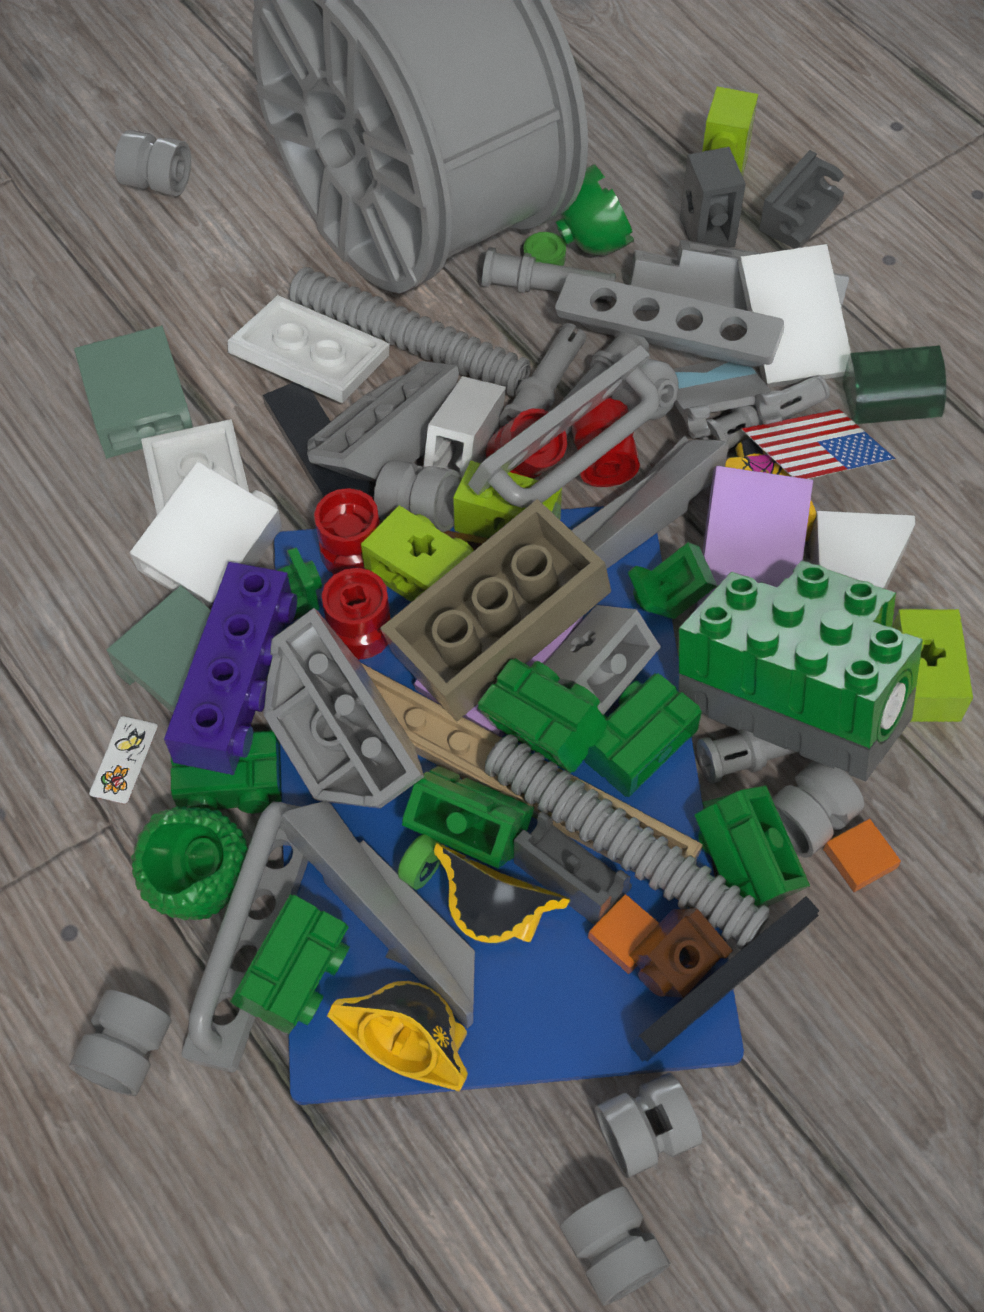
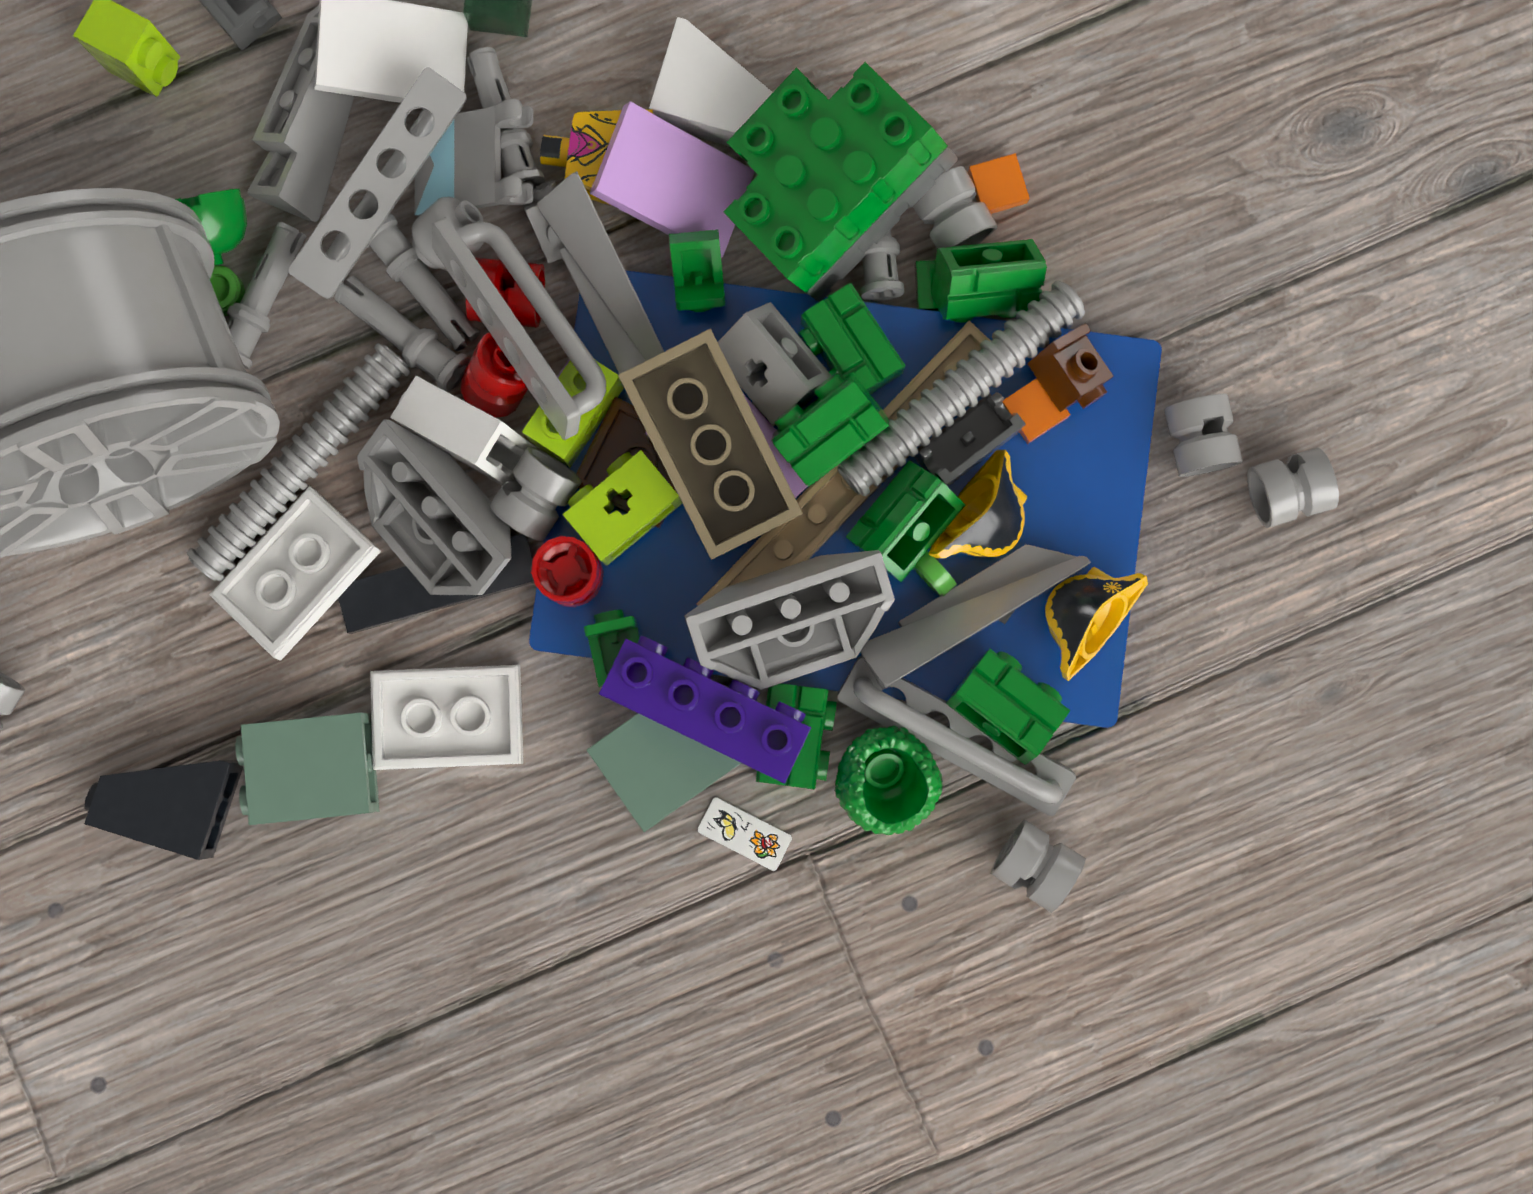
camera: 75 degrees left, 25 degrees up
(82, 298) = (167, 806): none -> black slope
(204, 529) = (531, 714): white brick -> none
(357, 609) = (663, 580): red wheel -> none
(712, 197) = (213, 89): dark grey brick -> none
(724, 980) = (1127, 386): black tile -> none
(818, 444) = (562, 80): sticker -> none
(943, 673) = (814, 41): lime brick -> none

